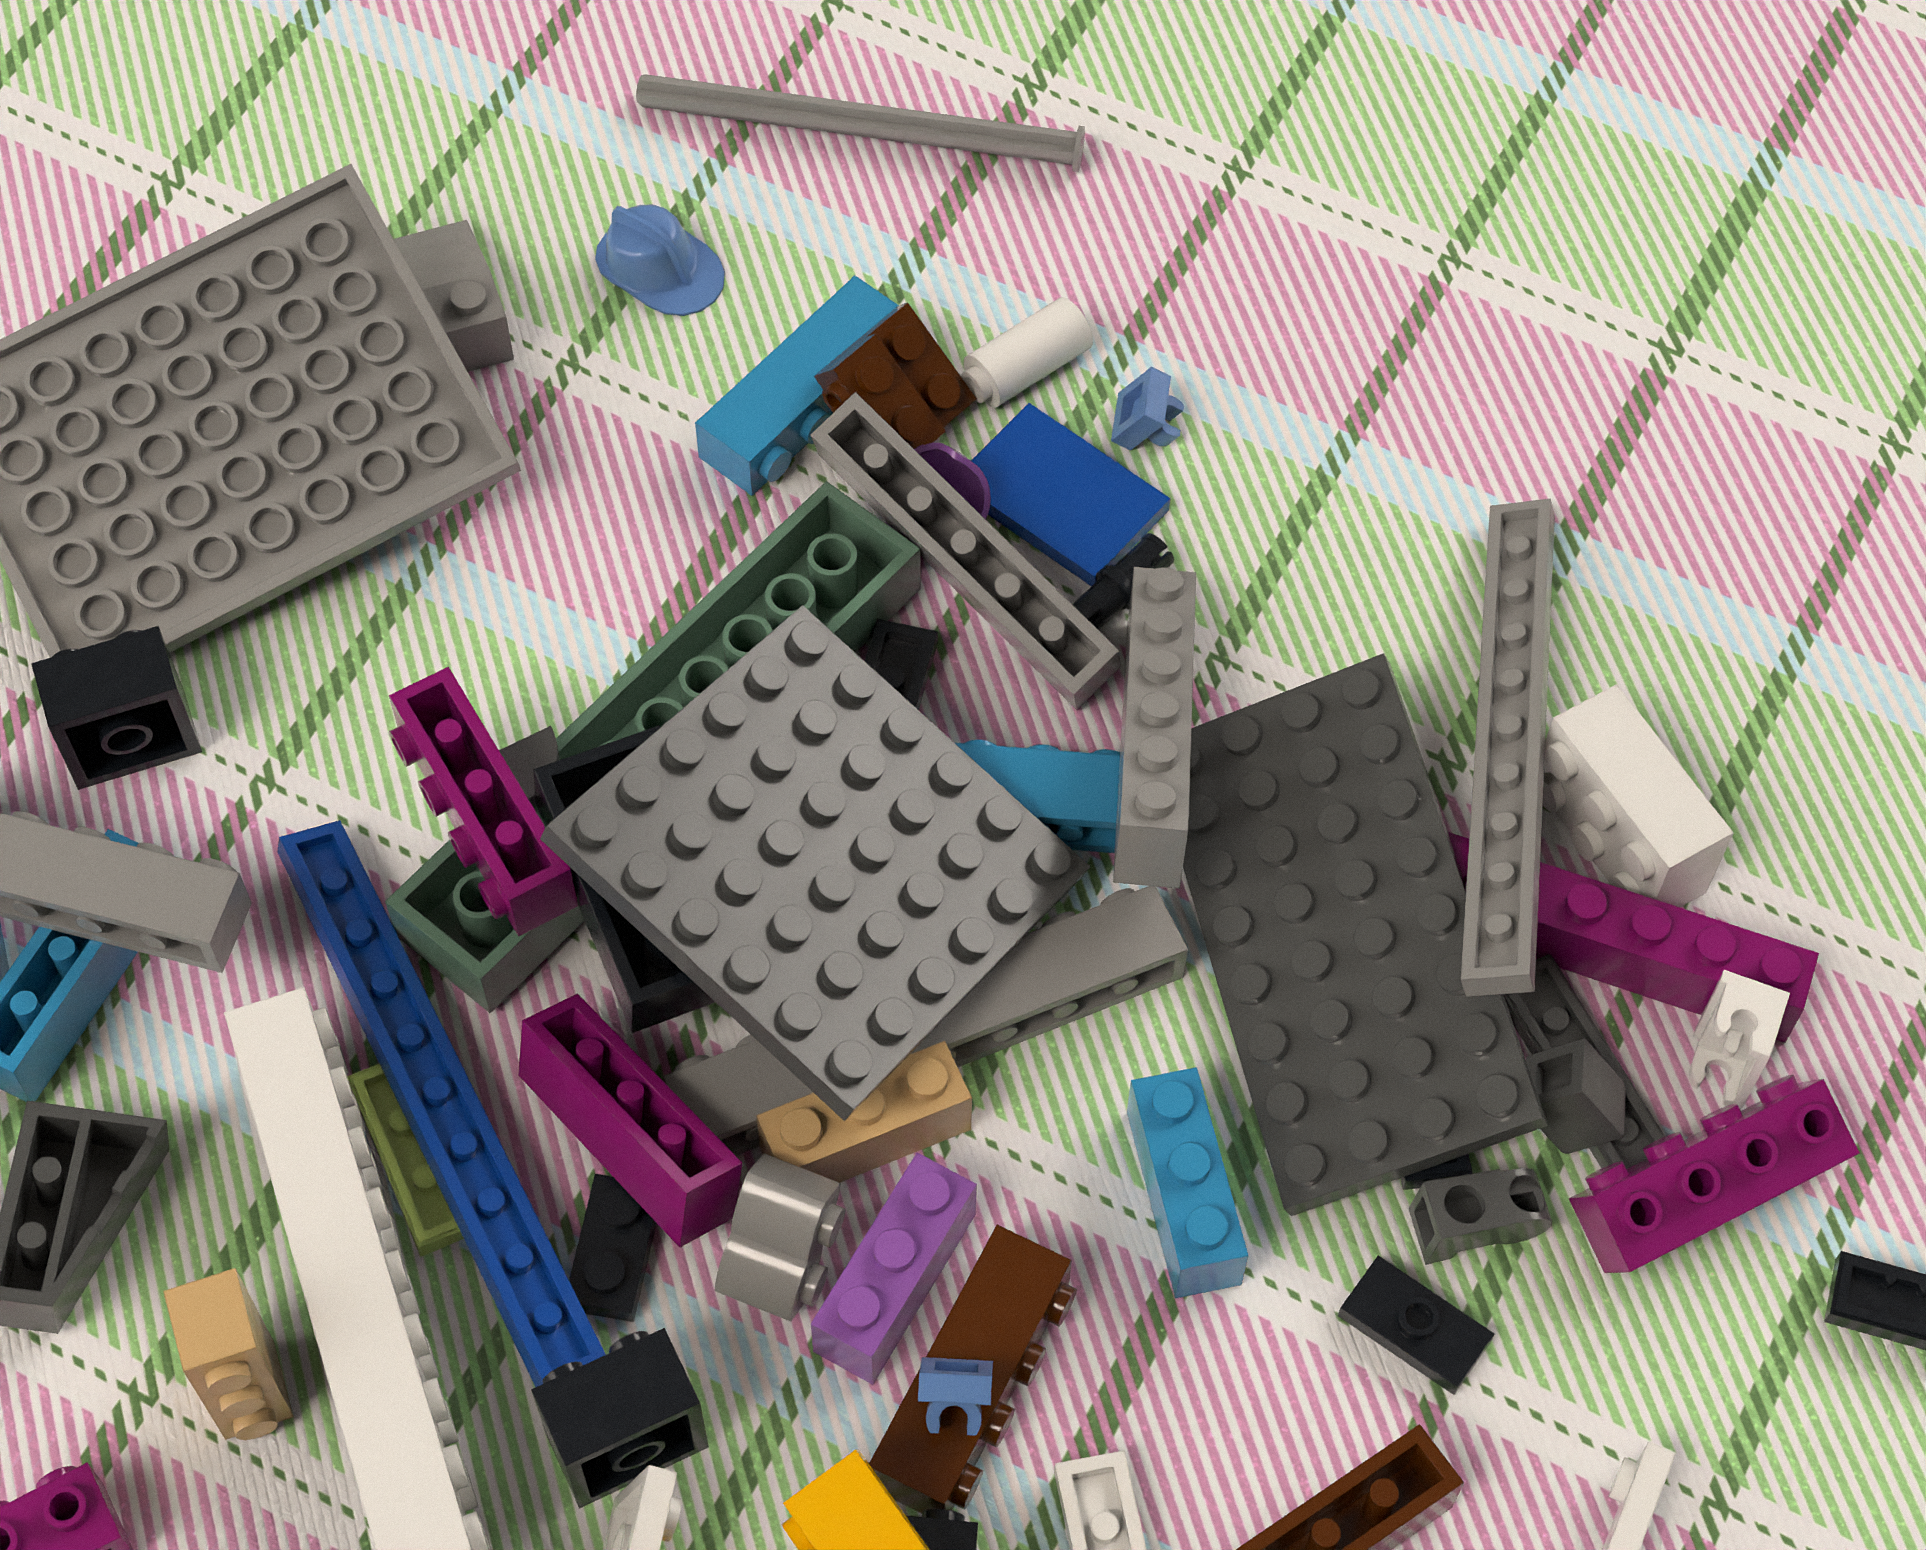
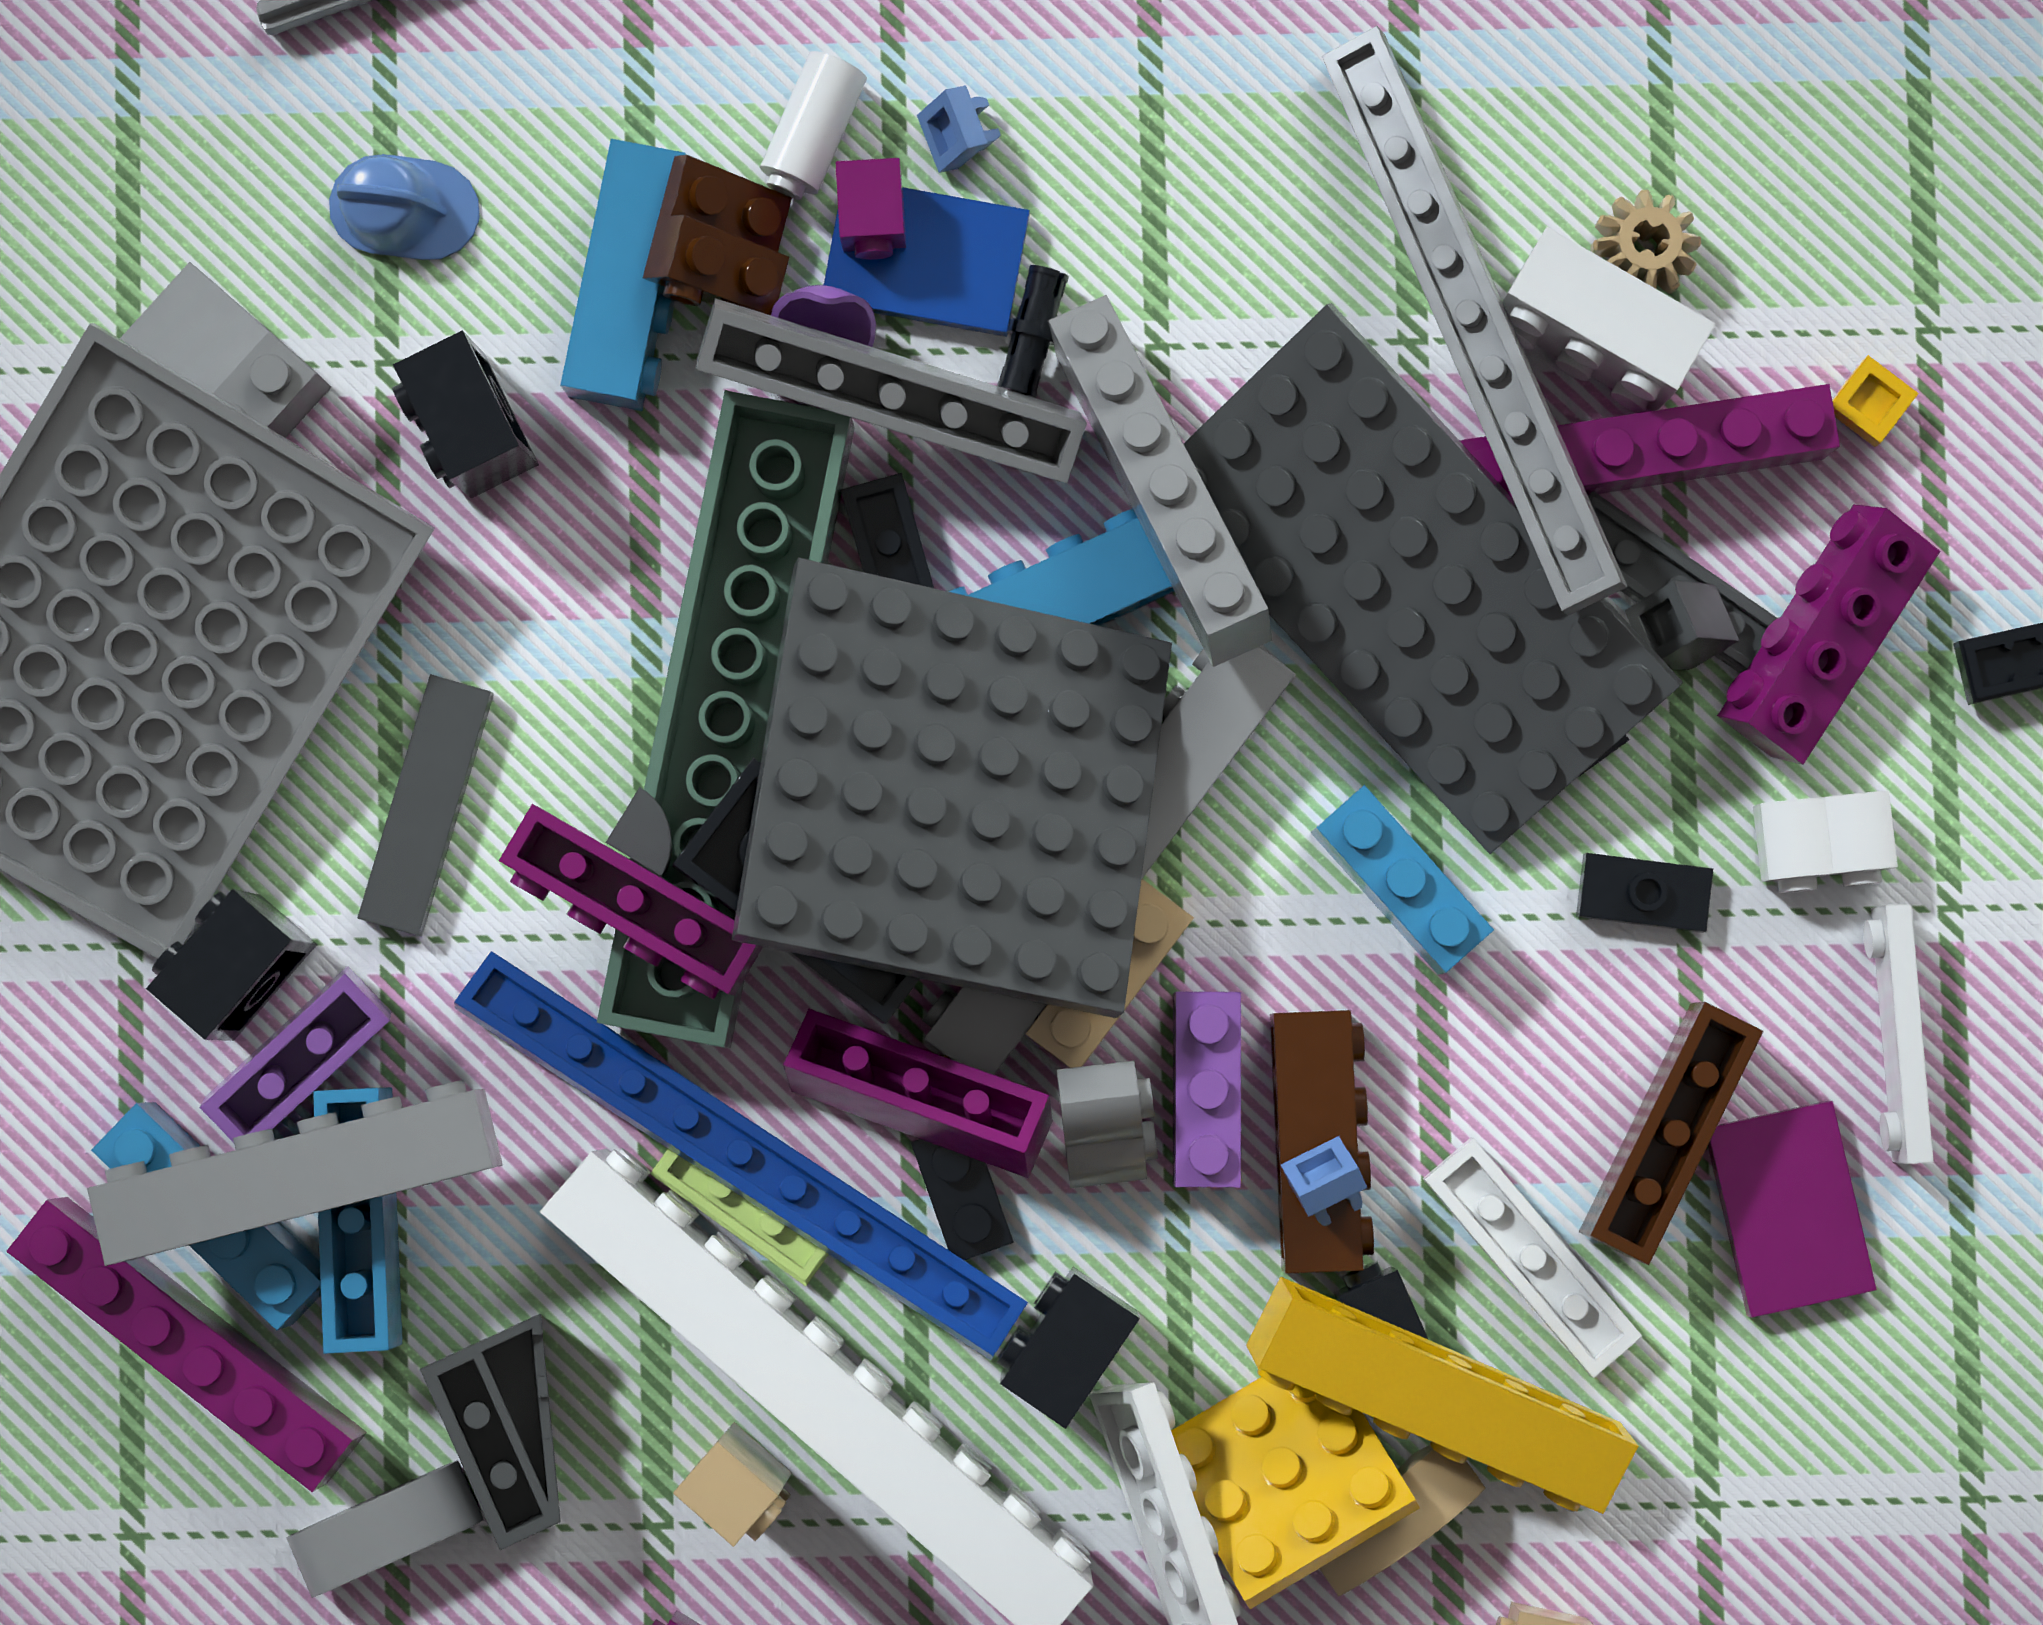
camera: 25 degrees left, 25 degrees up
(145, 801) = (297, 1057): none -> medium lavender brick
(359, 691) = (425, 805): none -> dark grey tile
(601, 406) = (465, 415): none -> black brick
(1037, 420) = (871, 207): none -> magenta brick
(1478, 1212) = (1650, 770): dark grey leg -> none
(1620, 1361) = (1825, 838): none -> white brick
(1718, 769) = (1648, 222): none -> tan gear
(1738, 1033) = (1801, 494): white hinge -> none
(1855, 1007) = (1872, 401): none -> yellow plate

